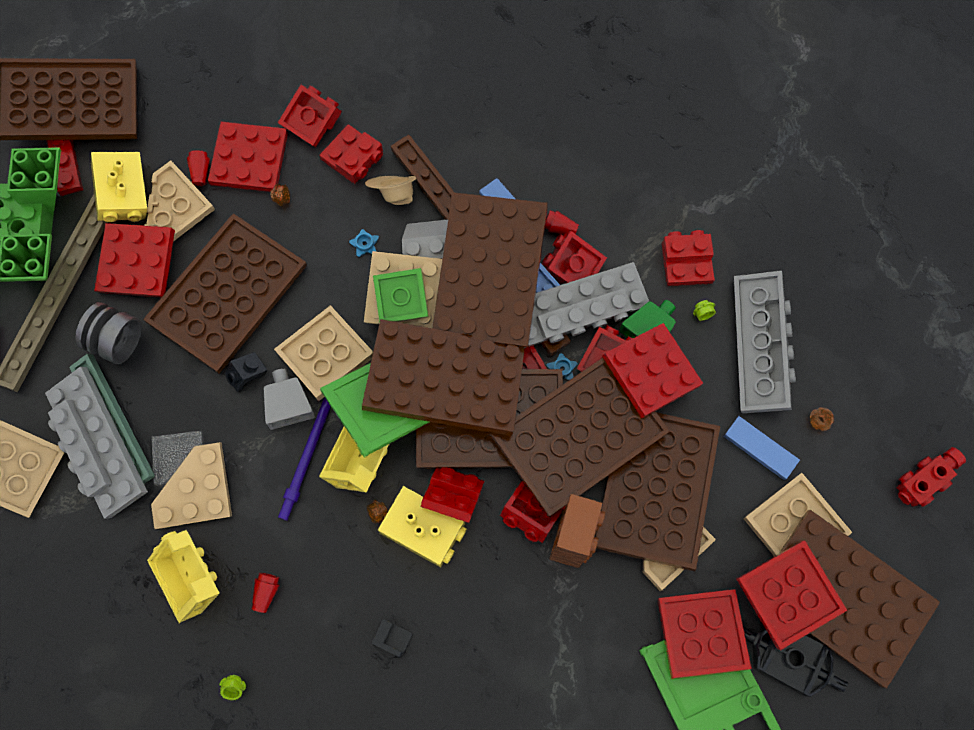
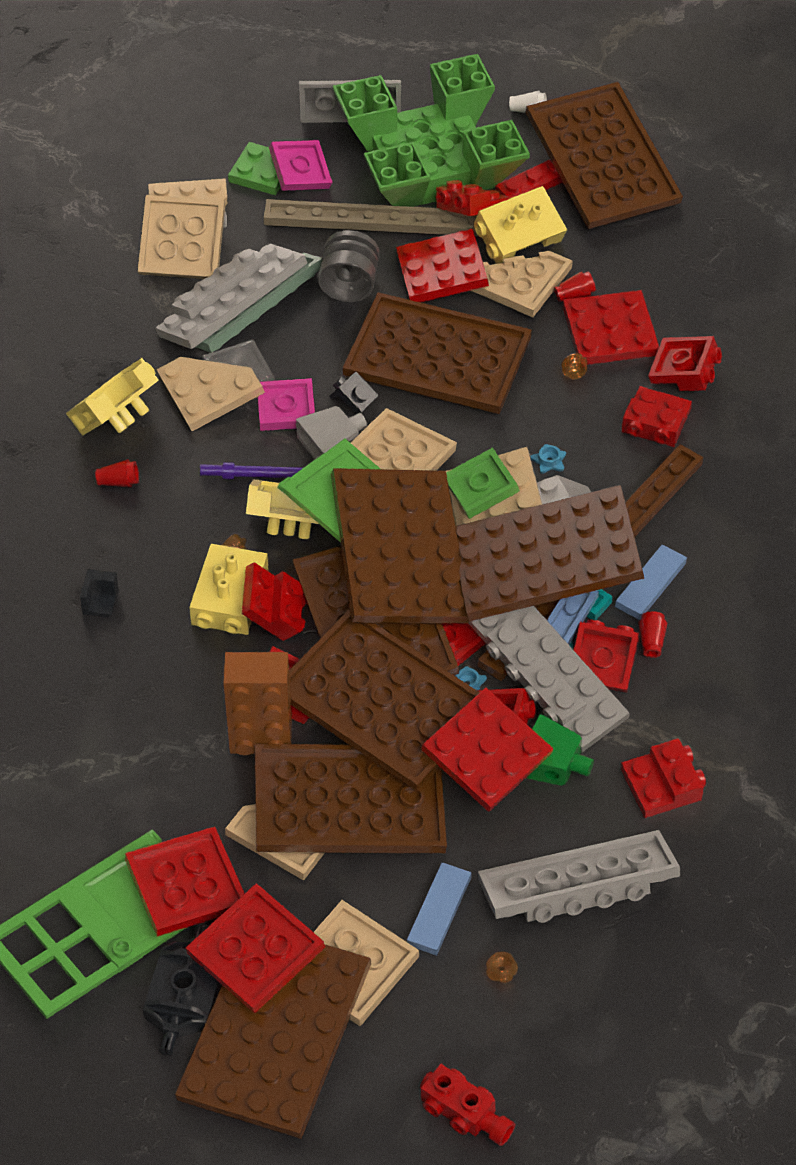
camera: 75 degrees right, 20 degrees down
(74, 214) = (466, 198): none -> red plate
(232, 687) = (13, 475): lime plate -> none
(237, 428) = (284, 403): none -> dark pink plate
(394, 188) = (626, 460): tan piece -> none
(704, 310) = (599, 809): lime plate -> none

